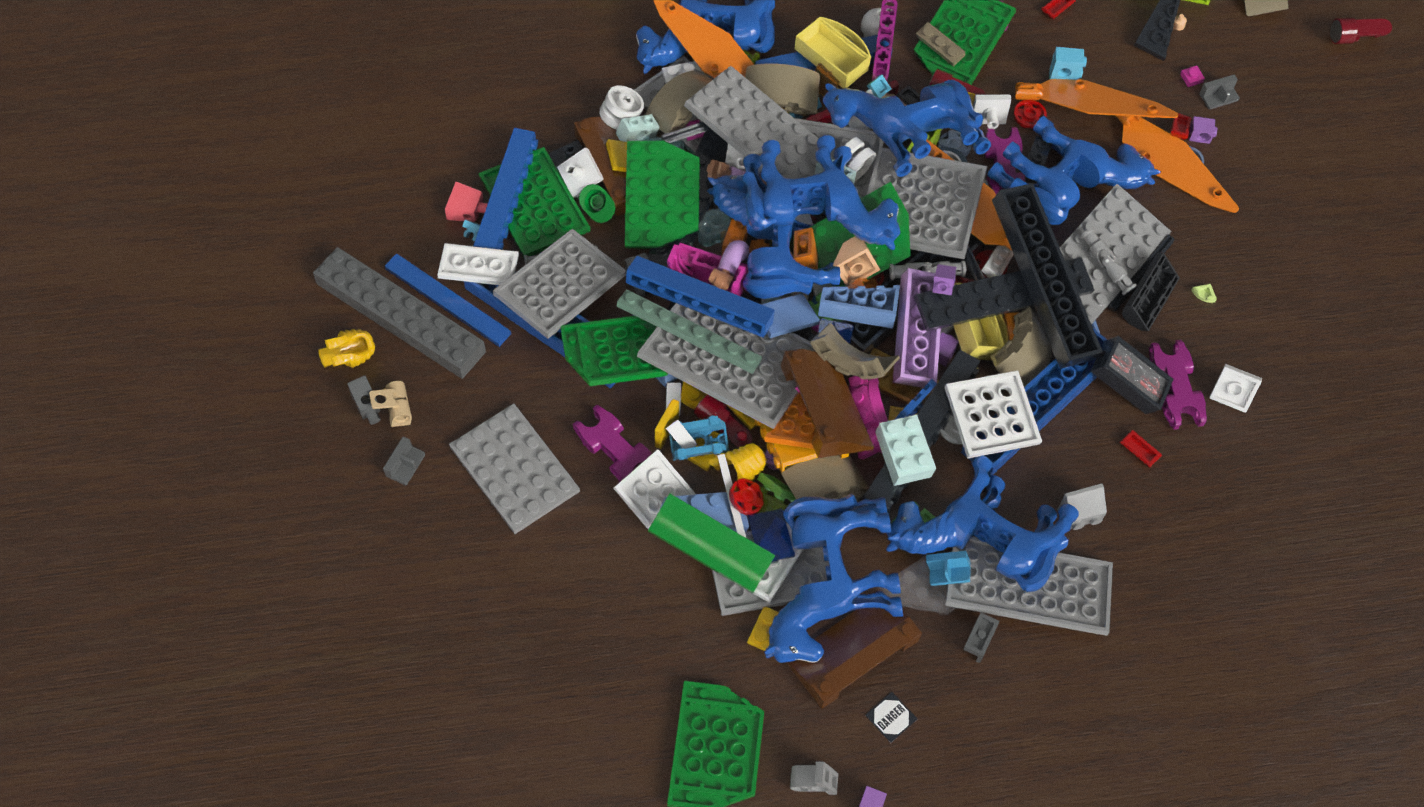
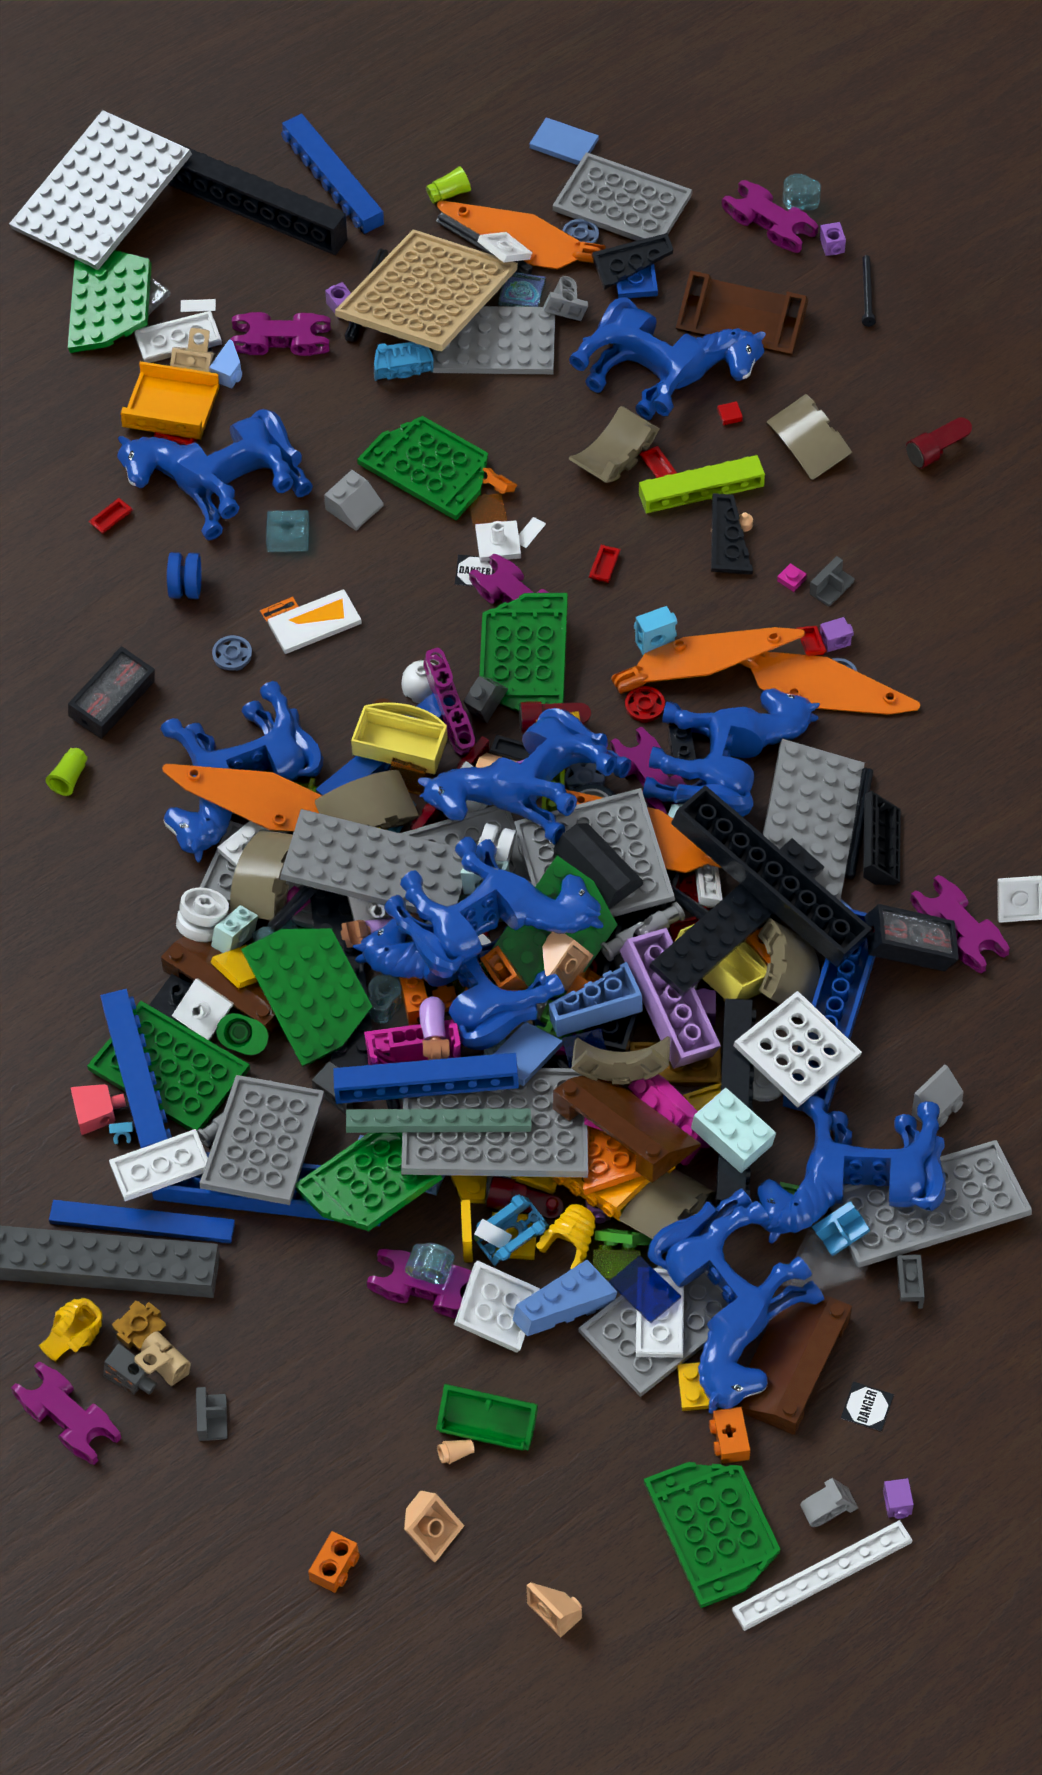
camera: 25 degrees left, 5 degrees down
(309, 420) = (78, 1424): none -> magenta piece
(395, 369) = (138, 1324): none -> pearl gold piece
(416, 613) = (329, 1560): none -> orange brick
(505, 629) = (431, 1524): none -> light nougat slope
(514, 468) = (331, 1360): light grey plate -> none
(557, 744) = (554, 1607): none -> light nougat slope
(559, 582) = (454, 1450): none -> light nougat cone
(596, 571) = (487, 1417): none -> green container
(623, 433) = (430, 1263): none -> clear light blue piece
(673, 392) = (452, 1201): white sticker -> none
(711, 543) = (592, 1325): green arch -> none
(728, 482) = (582, 1269): white sticker -> none
(747, 496) = (598, 1260): red wheel -> none
(771, 694) = (730, 1422): none -> orange brick
(879, 86) = (472, 753): medium azure tile -> none
(913, 54) = (484, 697): none -> dark grey torso
(916, 403) = (710, 1080): blue wing -> none
(922, 203) = (597, 860): none -> black piece
(940, 44) = (506, 671): dark tan plate -> none
(944, 279) = (672, 932): medium lavender brick -> none
(992, 108) = (606, 718): white tile -> none
(1115, 271) = (834, 835): light grey piece -> none
(1141, 448) = (960, 1009): red tile -> none
(1204, 293) = (934, 812): yellowish green tile -> none

